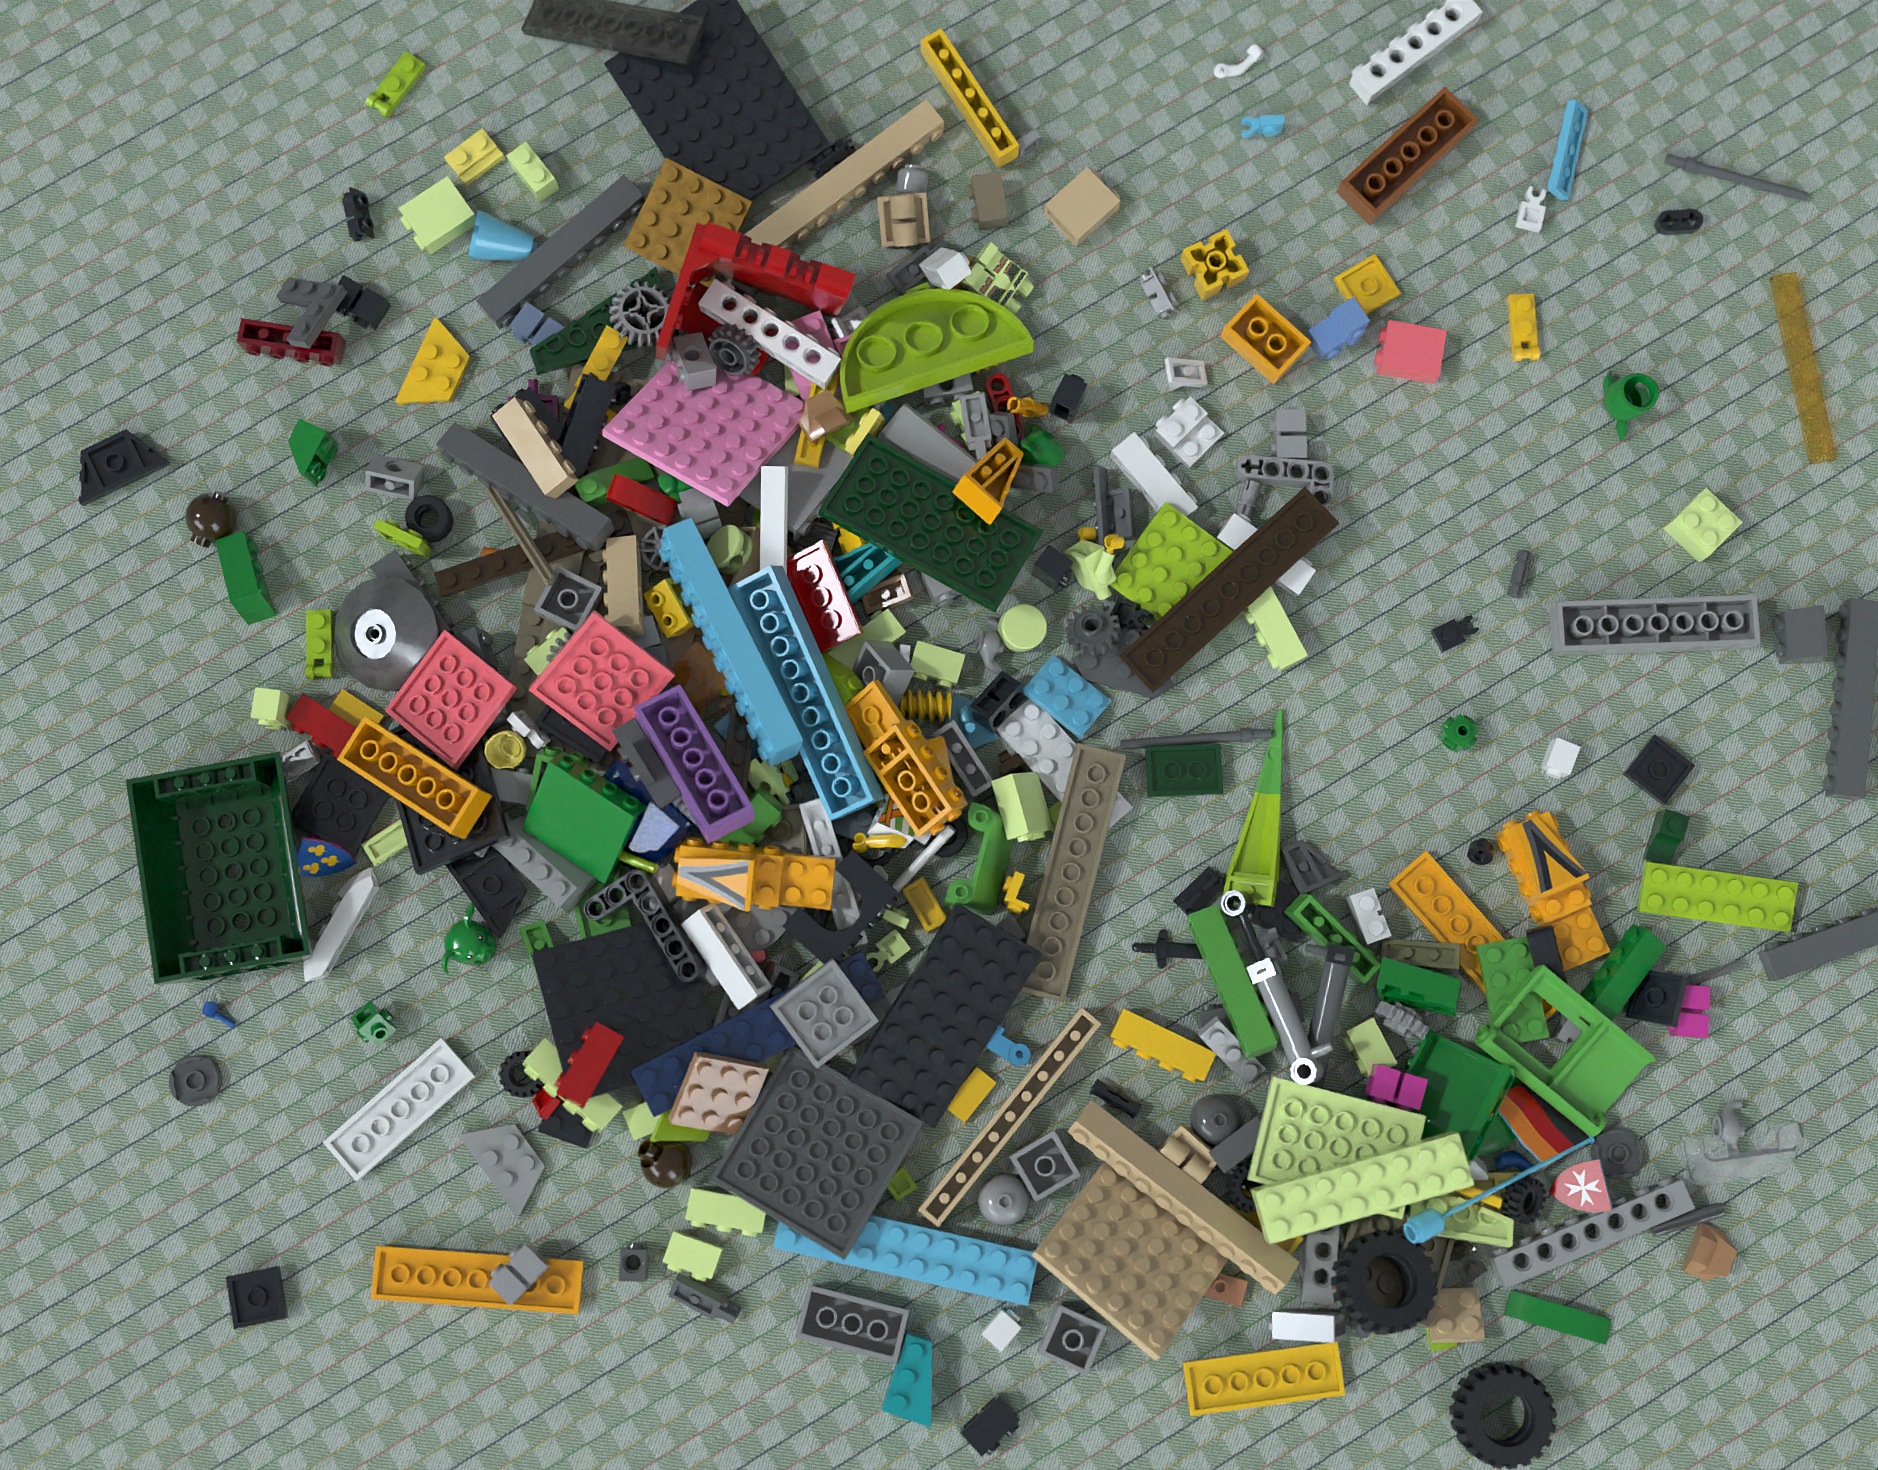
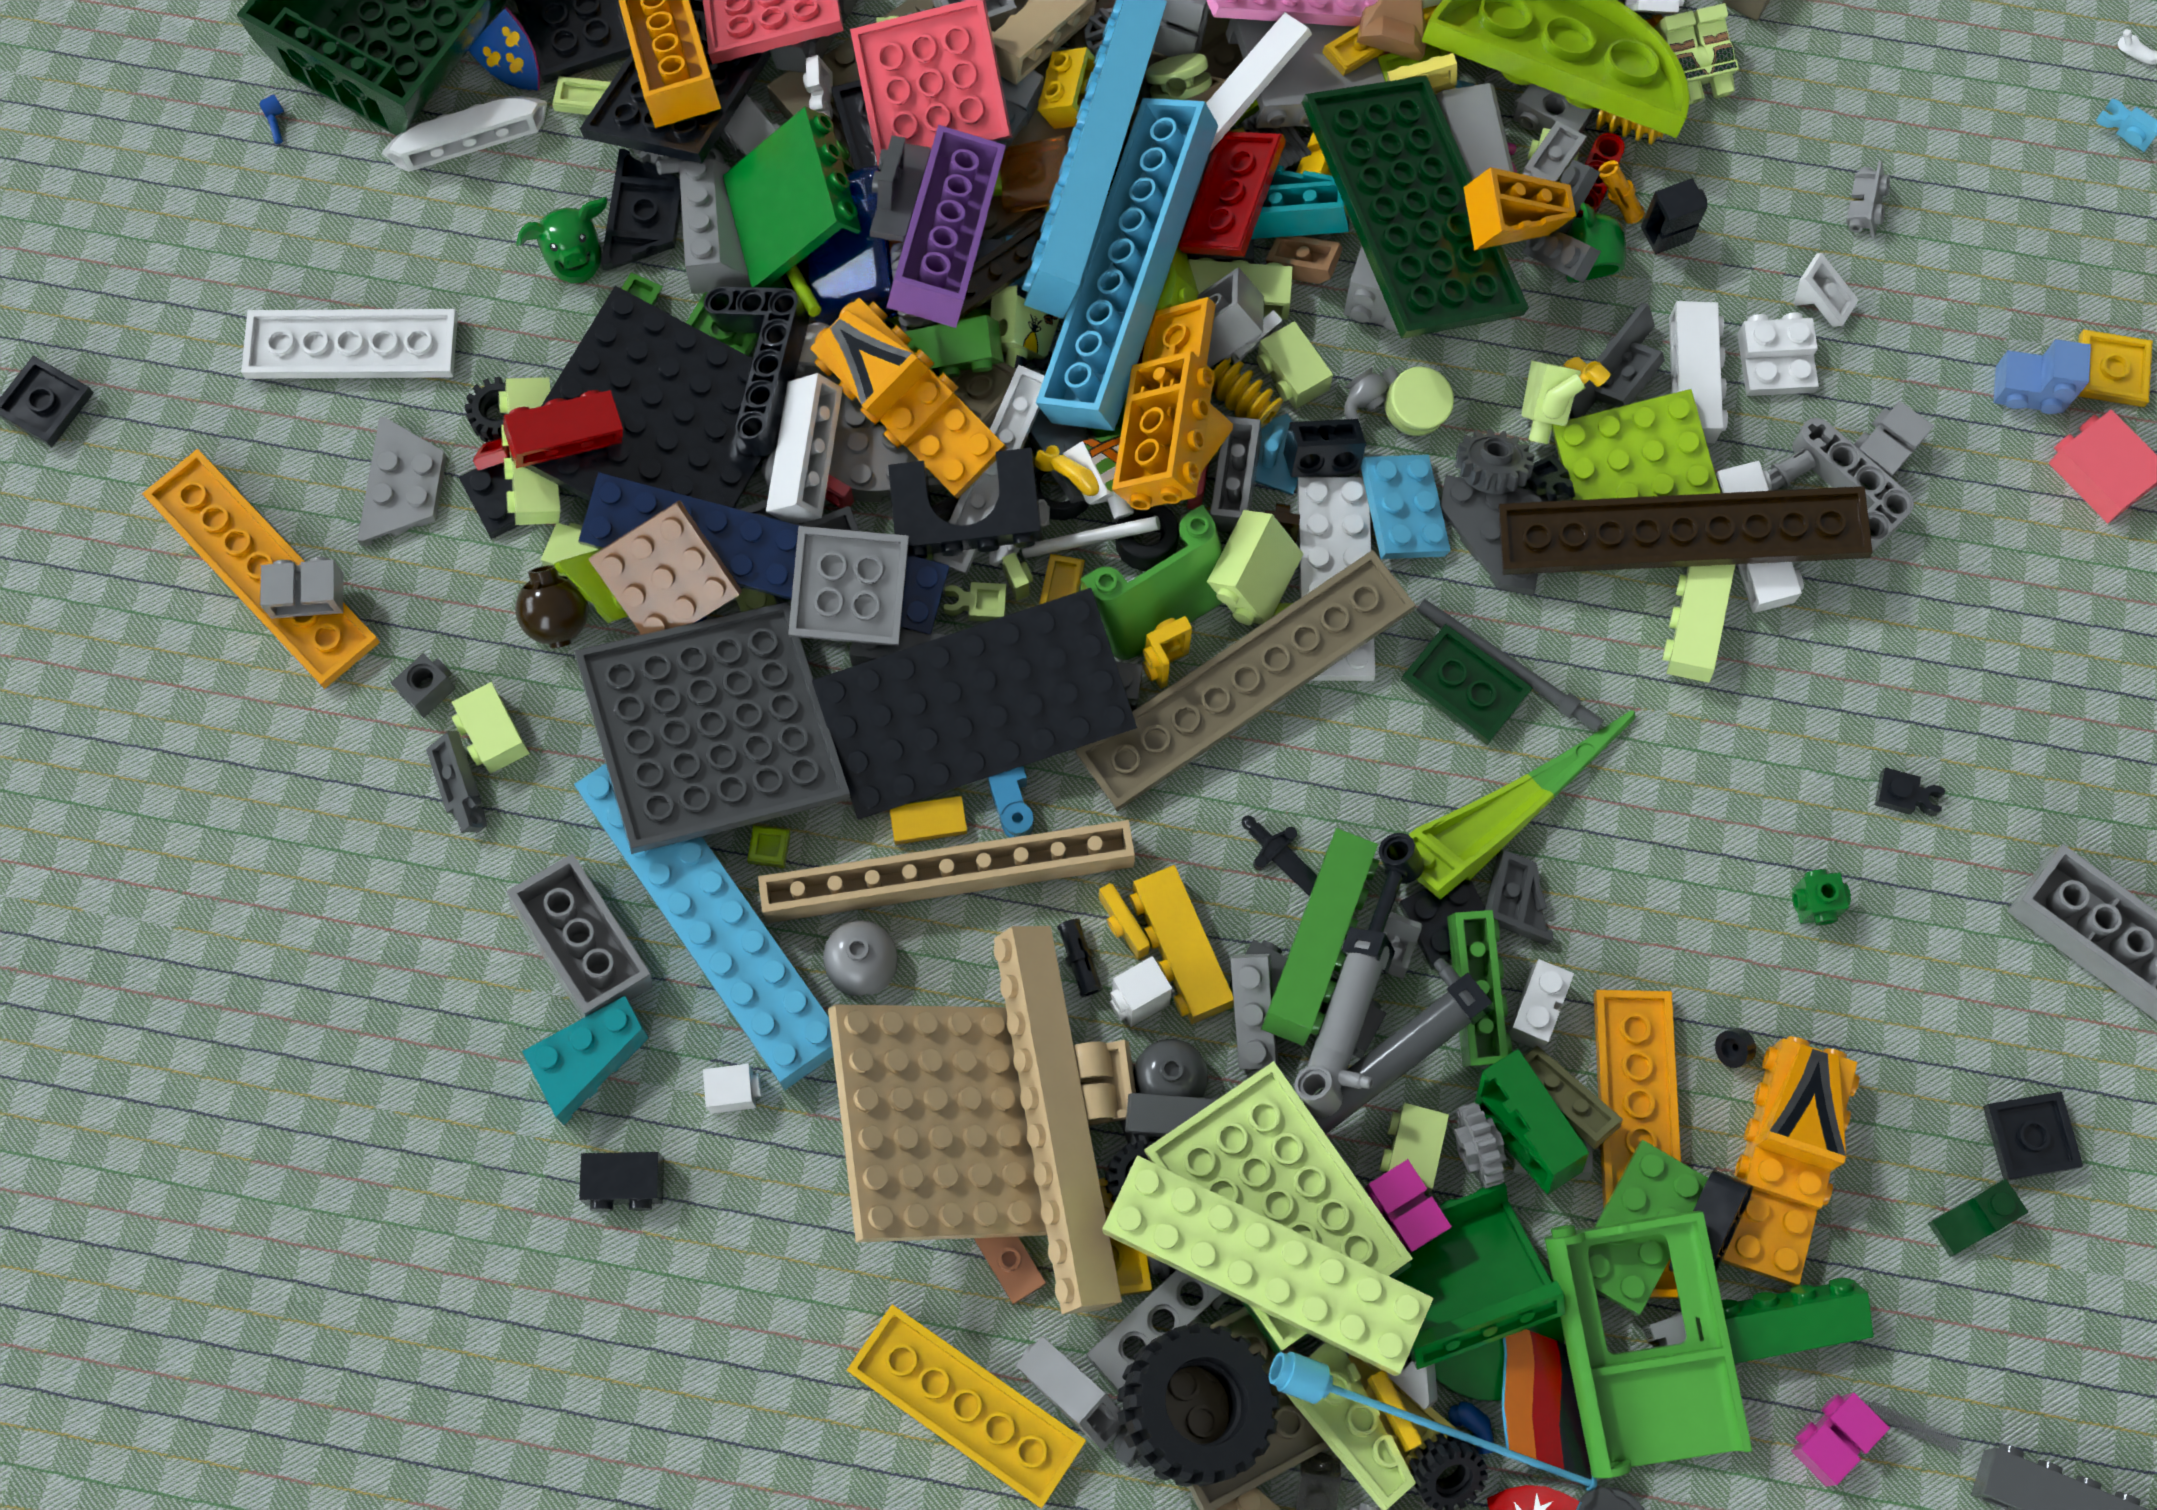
camera: 45 degrees right, 10 degrees down
(195, 1080) = (192, 161): dark grey tile -> none
(373, 1023) = (404, 241): green brick -> none
(505, 749) = (777, 87): light yellow hair -> none
(724, 1211) = (562, 713): yellowish green brick -> none
(1044, 1165) = (936, 954): light grey brick -> none
(1053, 568) = (1505, 364): black brick -> none
(1072, 1339) = (794, 1164): light grey brick -> none
(1082, 206) = (1856, 56): tan brick -> none
(1120, 1060) = (1123, 922): none -> yellow plate
(1166, 1093) = (1140, 992): none -> white brick
(1200, 891) = (1372, 822): black hinge -> none
(1219, 252) = (1955, 212): yellow brick -> none
(1265, 339) = (1949, 325): light orange brick -> none
(1519, 574) = (2041, 793): dark grey axle -> none
(1560, 758) = (1920, 1024): white brick -> none
(1658, 999) = (1812, 1386): black plate -> none
(1717, 896) = (1988, 1340): lime plate -> none

